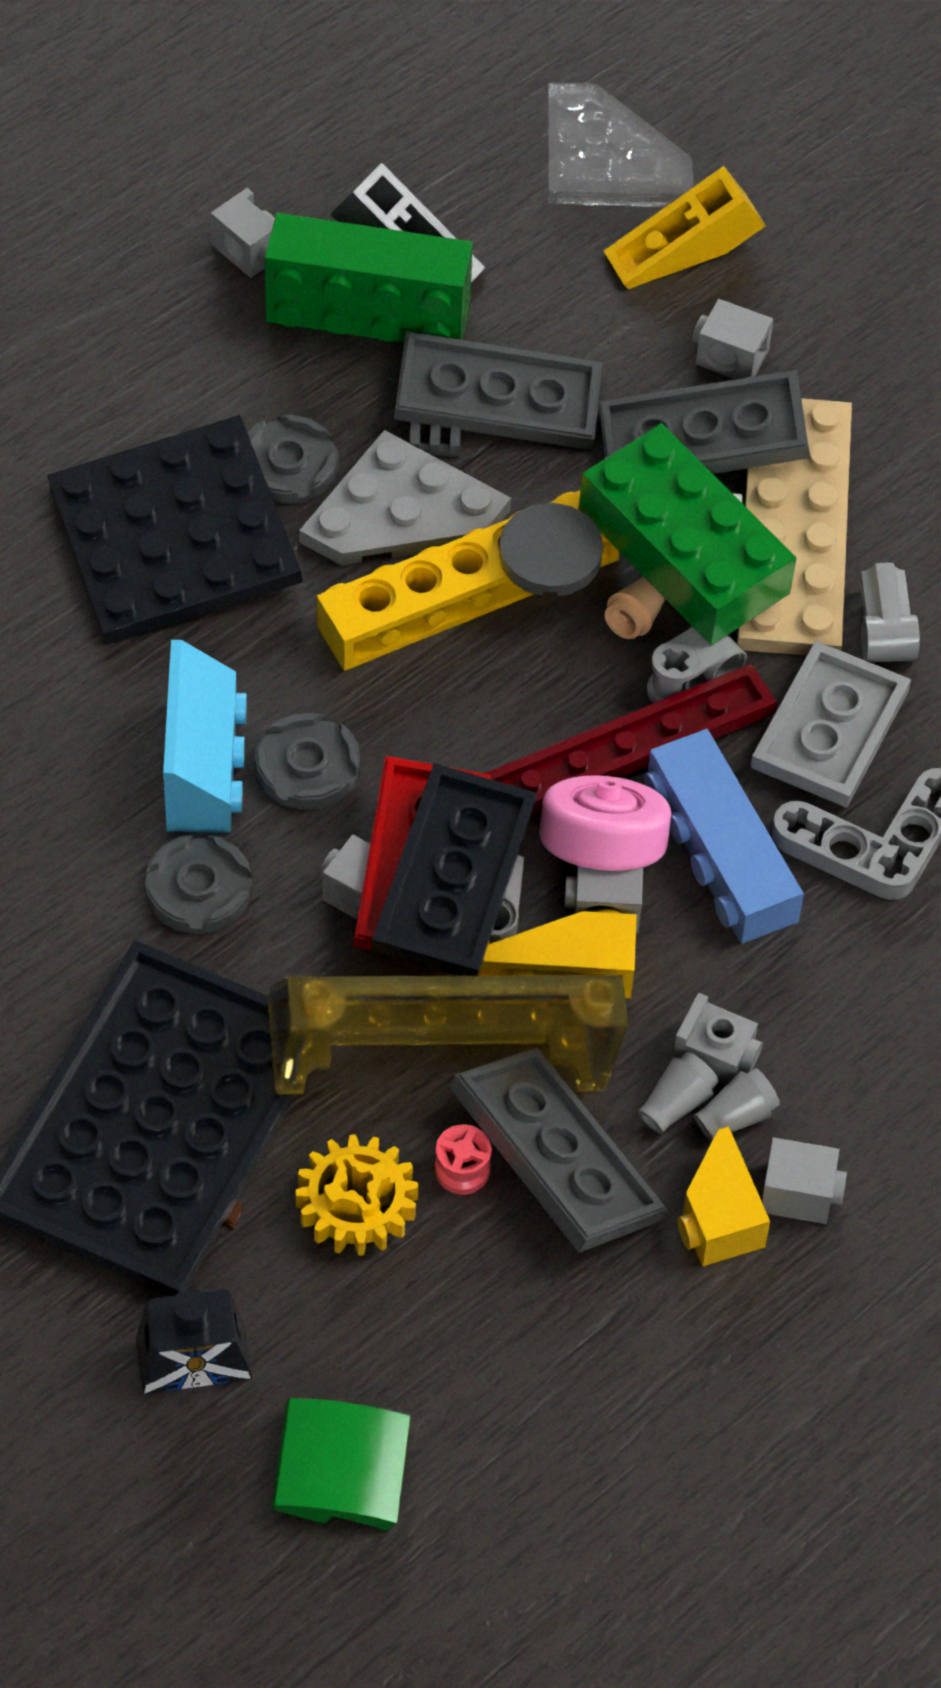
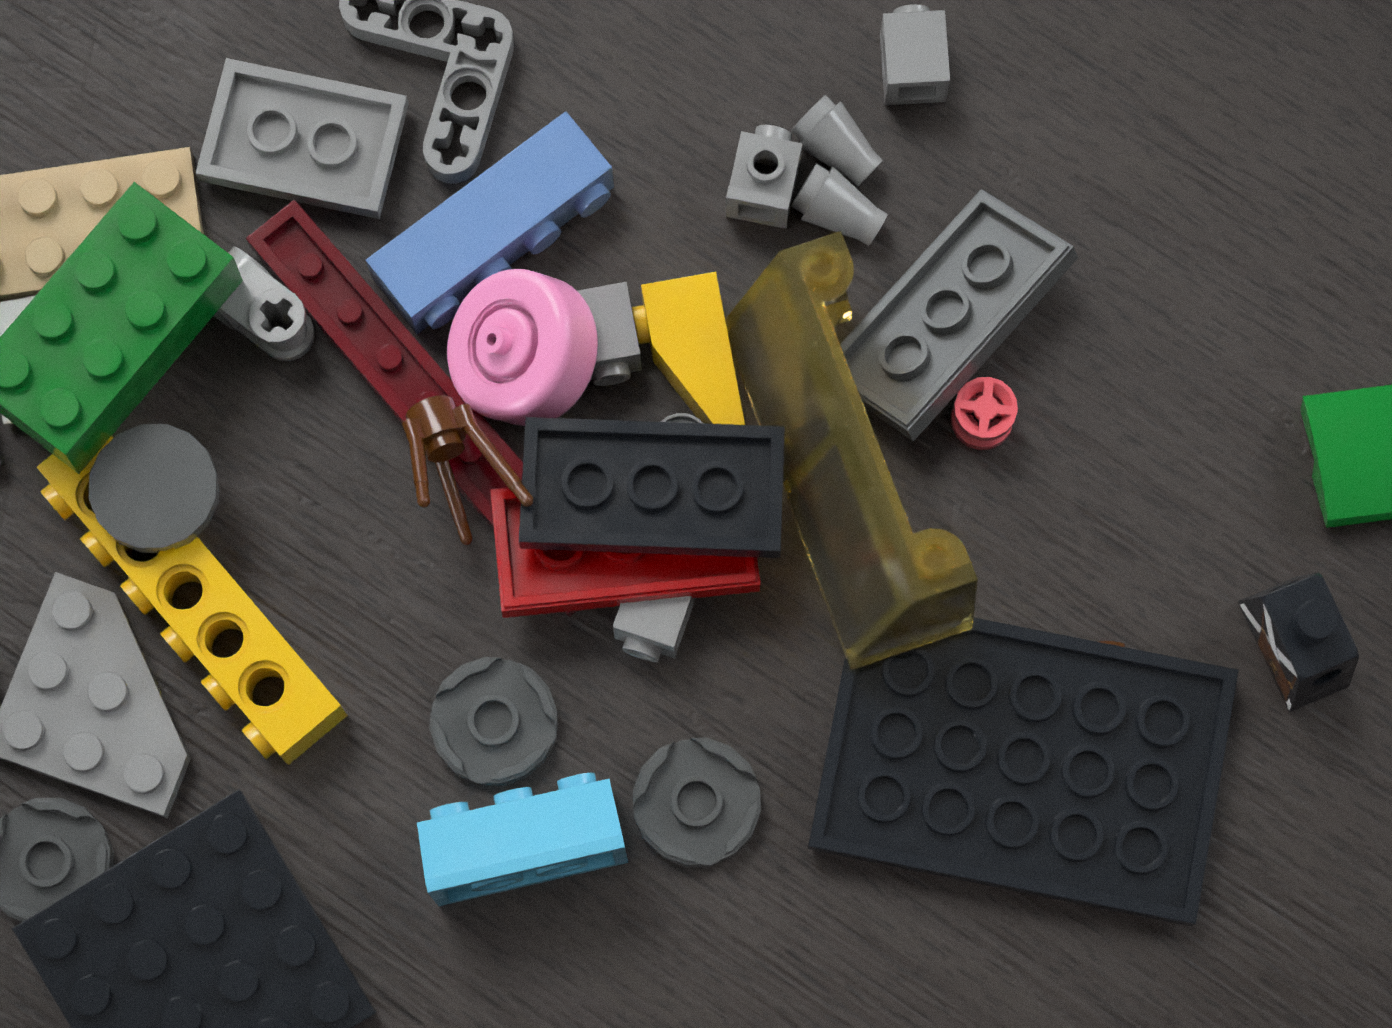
camera: 100 degrees left, 20 degrees up
(345, 1213) = (1079, 533): yellow gear -> none
(542, 744) = (438, 430): none -> reddish brown plant
(633, 609) = (192, 391): light nougat cone -> none
(722, 1206) = (964, 131): yellow slope -> none
(887, 627) = (153, 99): light grey piece -> none

